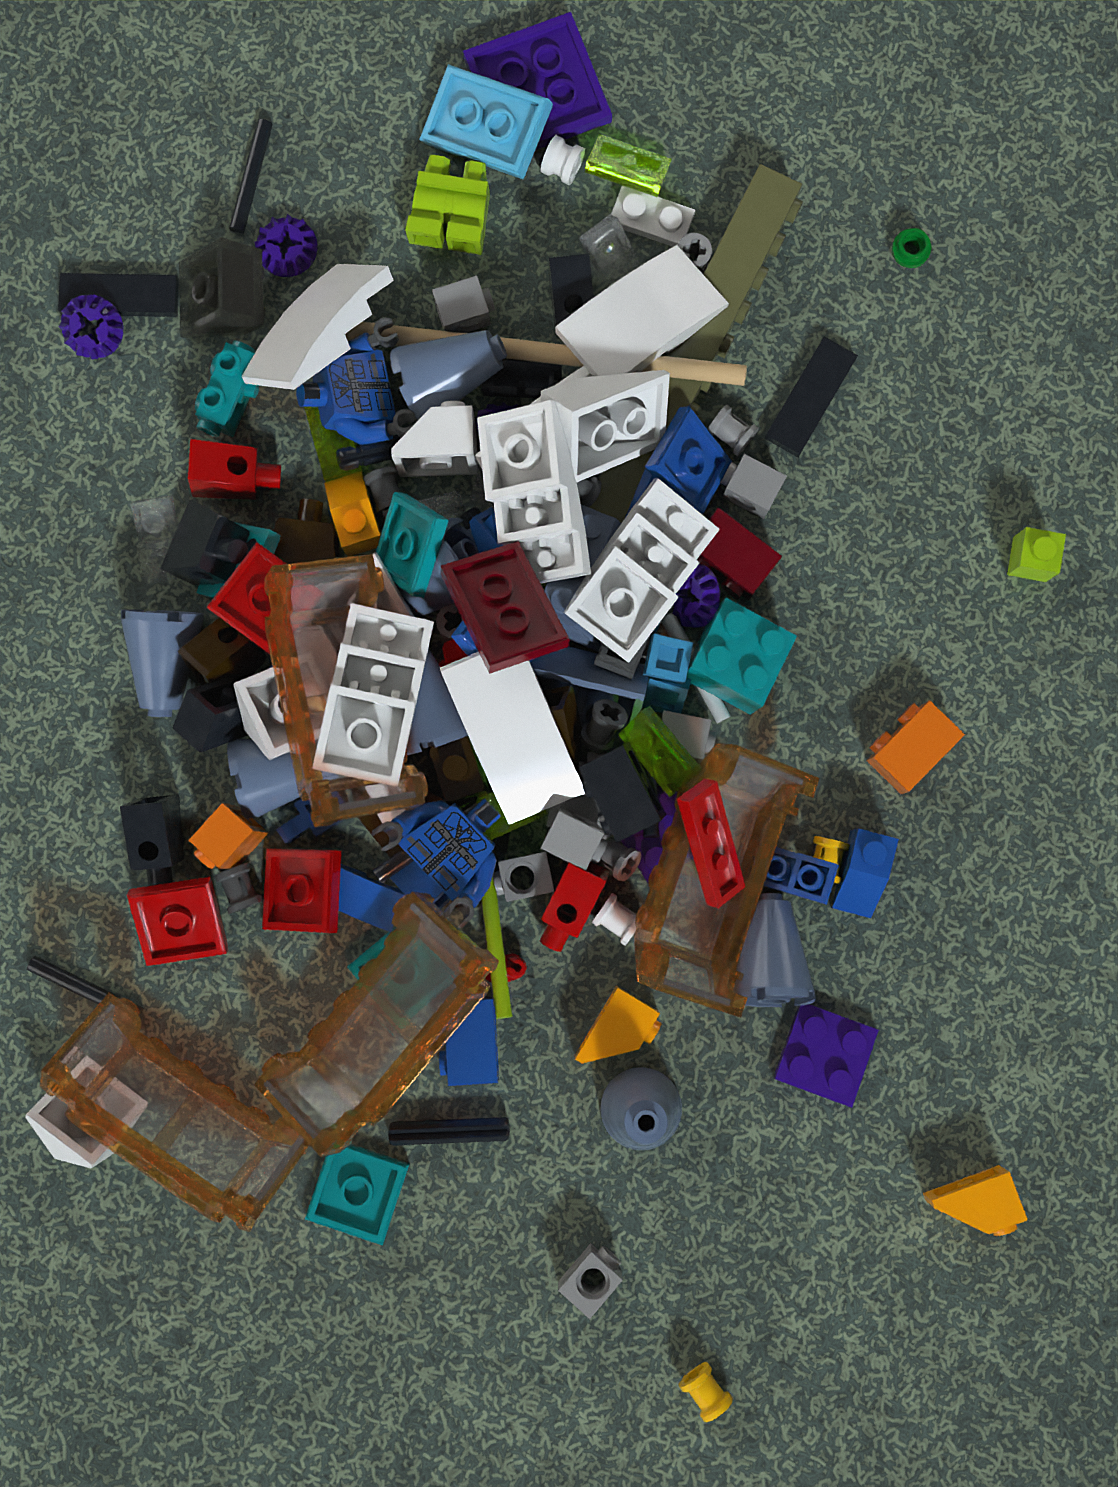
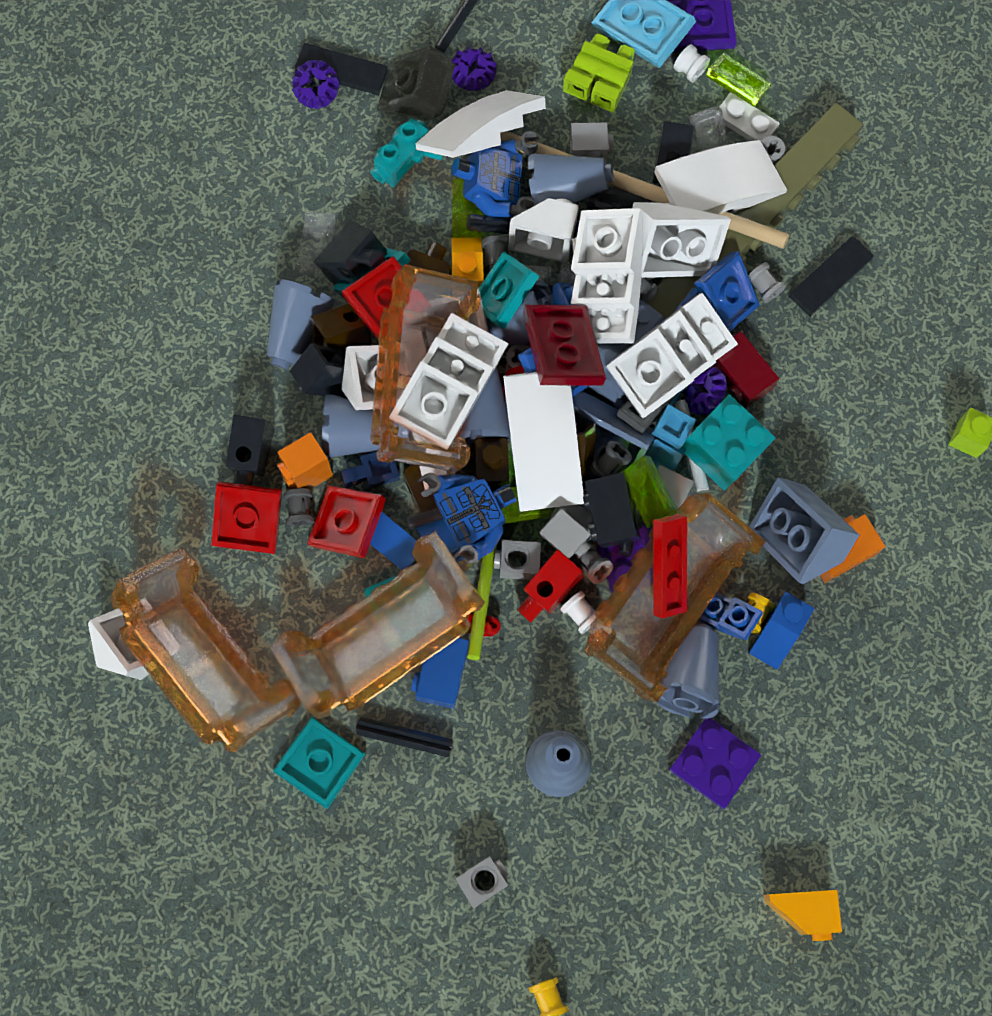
camera: 10 degrees right, 10 degrees down
(69, 981) = (144, 537): black bar -> none
(213, 467) = (384, 207): red torso -> none
(619, 1027) = (560, 693): light orange slope -> none
(752, 485) = (770, 325): light grey brick -> none
(859, 747) = (802, 530): none -> sand blue slope
(919, 239) = (937, 185): green plate -> none

